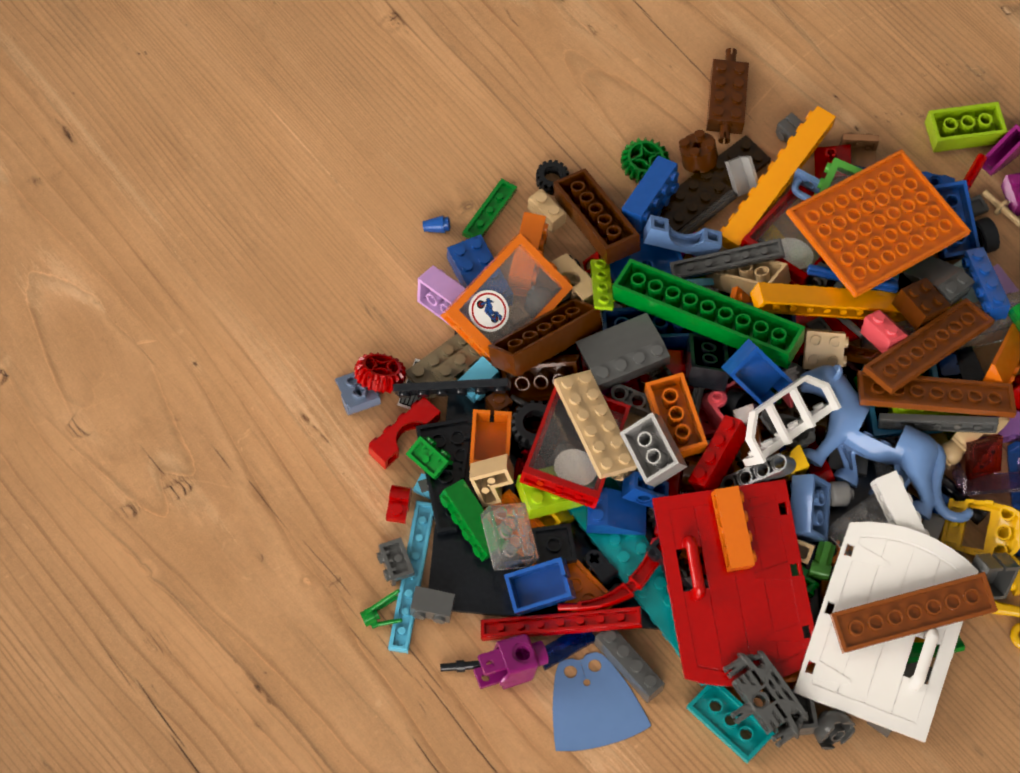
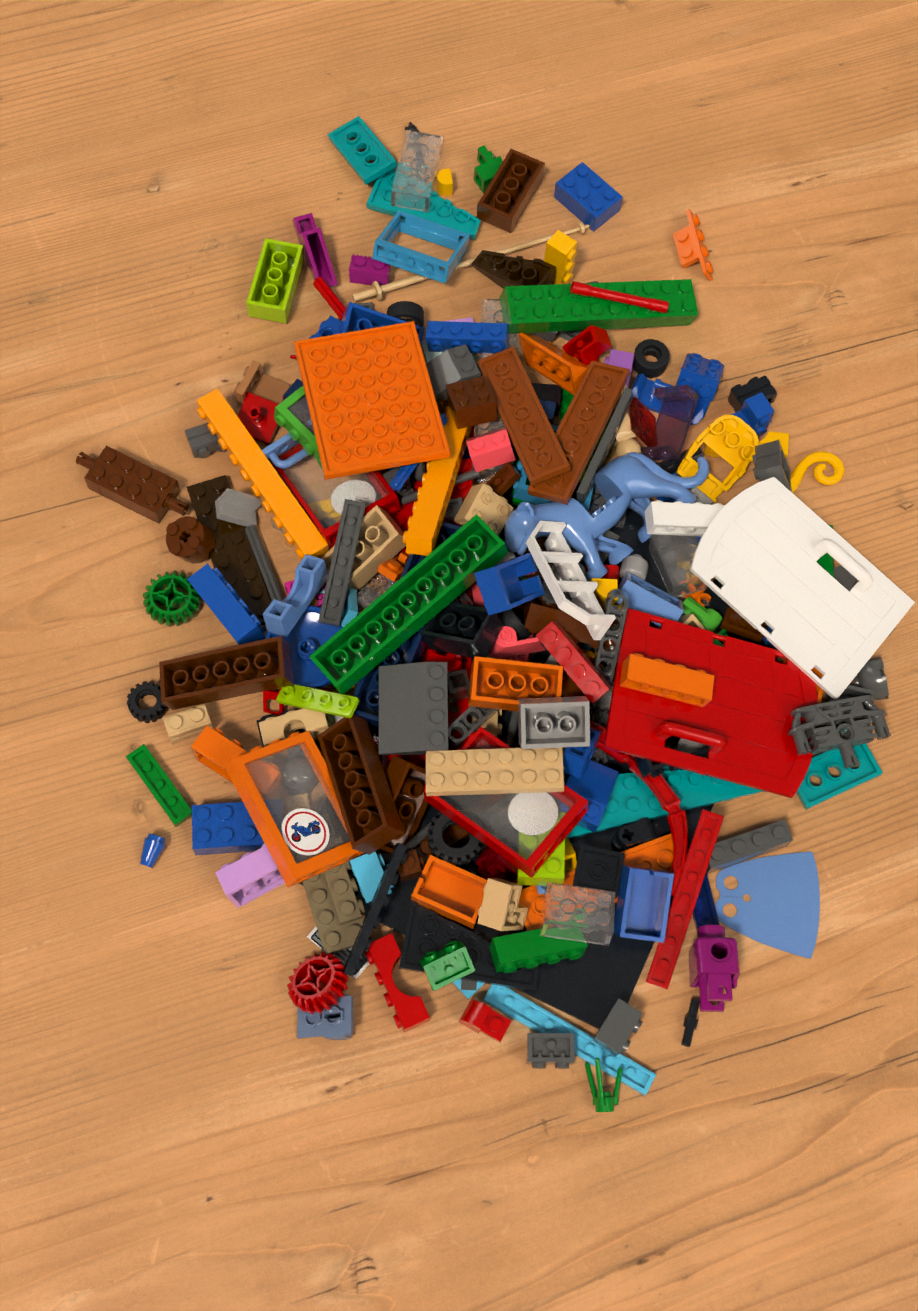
camera: 70 degrees left, 5 degrees up
(913, 612) = (800, 553): dark orange plate -> none

